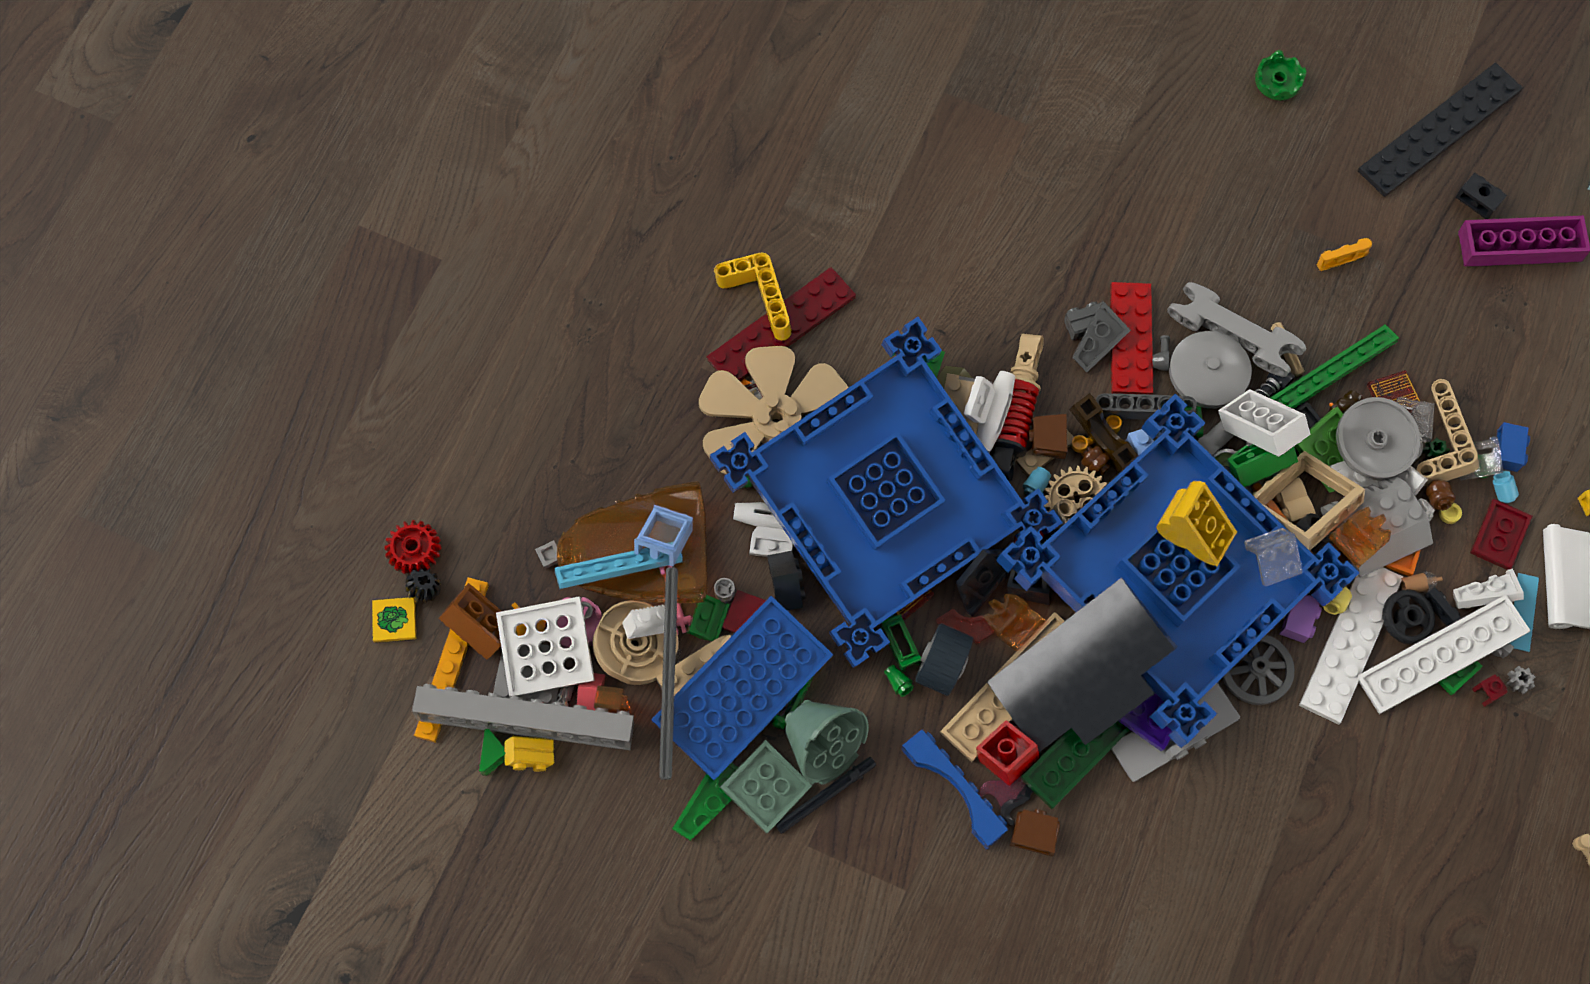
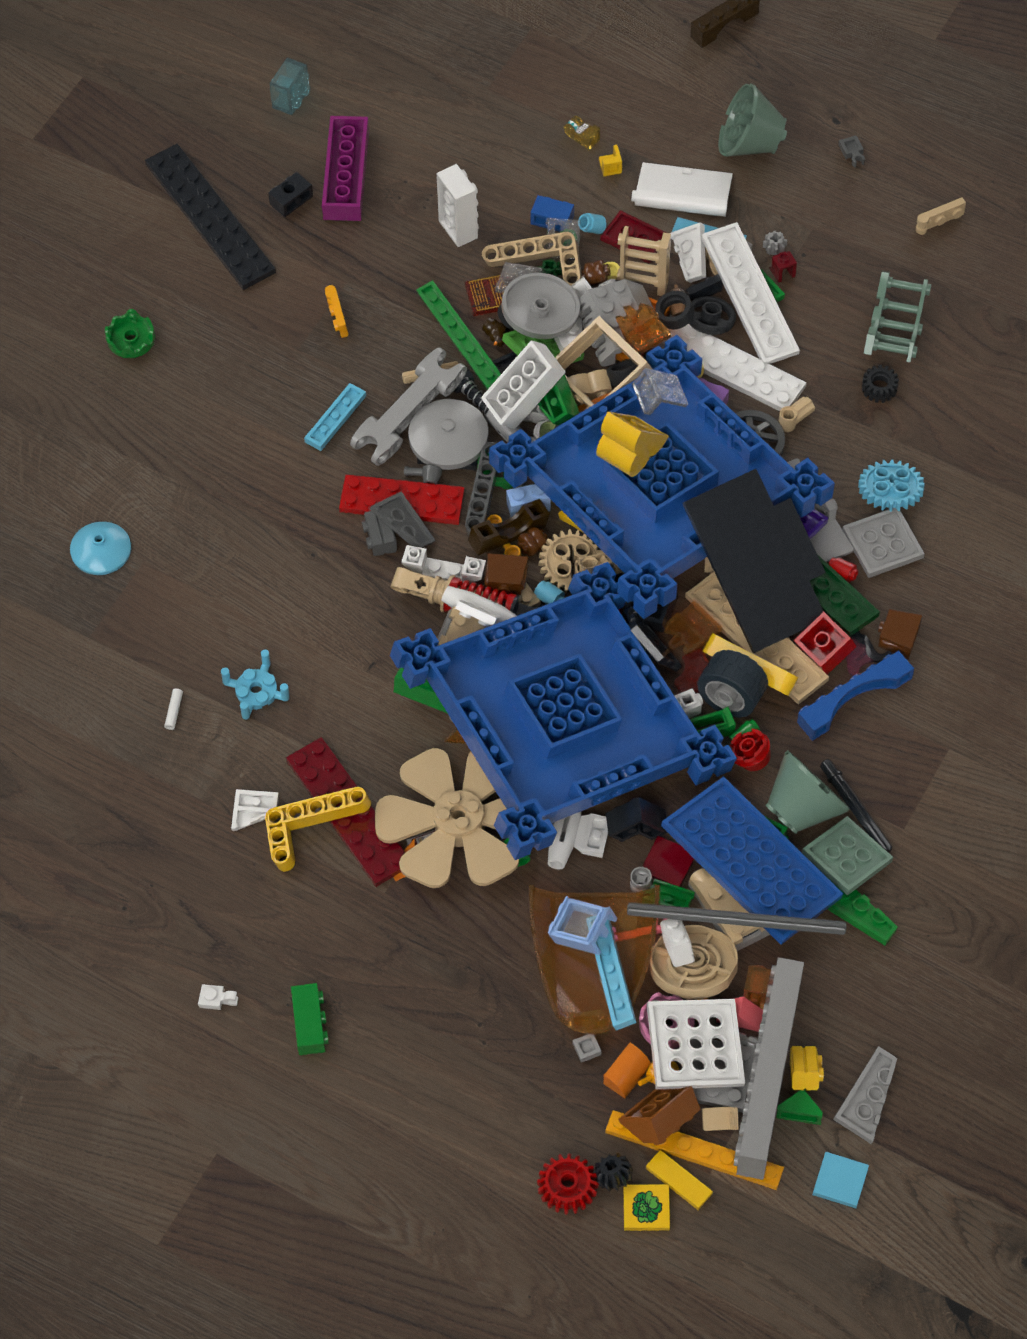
camera: 85 degrees left, 10 degrees down
(421, 647) = (679, 1180): none -> yellow tile
(424, 795) = (840, 1180): none -> medium azure tile
(481, 677) = (720, 1118): none -> tan bracket
(503, 815) = (865, 1101): none -> light grey wing
(525, 590) = (626, 1070): none -> orange brick
(566, 314) = (309, 1019): none -> green brick
(586, 238) = (214, 996): none -> white plate
(777, 245) = (252, 807): none -> white wing
(873, 169) = (173, 709): none -> white piece
(874, 684) = (751, 750): none -> red cone
(902, 224) = (256, 677): none -> medium azure plate
(915, 615) = (693, 708): none -> white window
(974, 679) = (777, 677): none -> yellow beam
(1036, 95) = (101, 556): none -> medium azure dish
(1054, 376) = (417, 561): none -> white slope
(1105, 770) = (844, 568): none -> red brick
(1147, 812) = (883, 542): none -> light grey plate
(1217, 267) = (335, 417): none -> medium azure plate
(1219, 817) = (891, 485): none -> medium azure gear
(1298, 714) = (793, 414): none -> tan piece
(1341, 807) = (880, 393): none -> black tyre
(1399, 588) = (672, 298): none -> black tyre
(1436, 797) = (875, 339): none -> sand green fence
(1454, 535) = (662, 259): none -> tan fence
(1489, 343) = (457, 205): none -> white brick

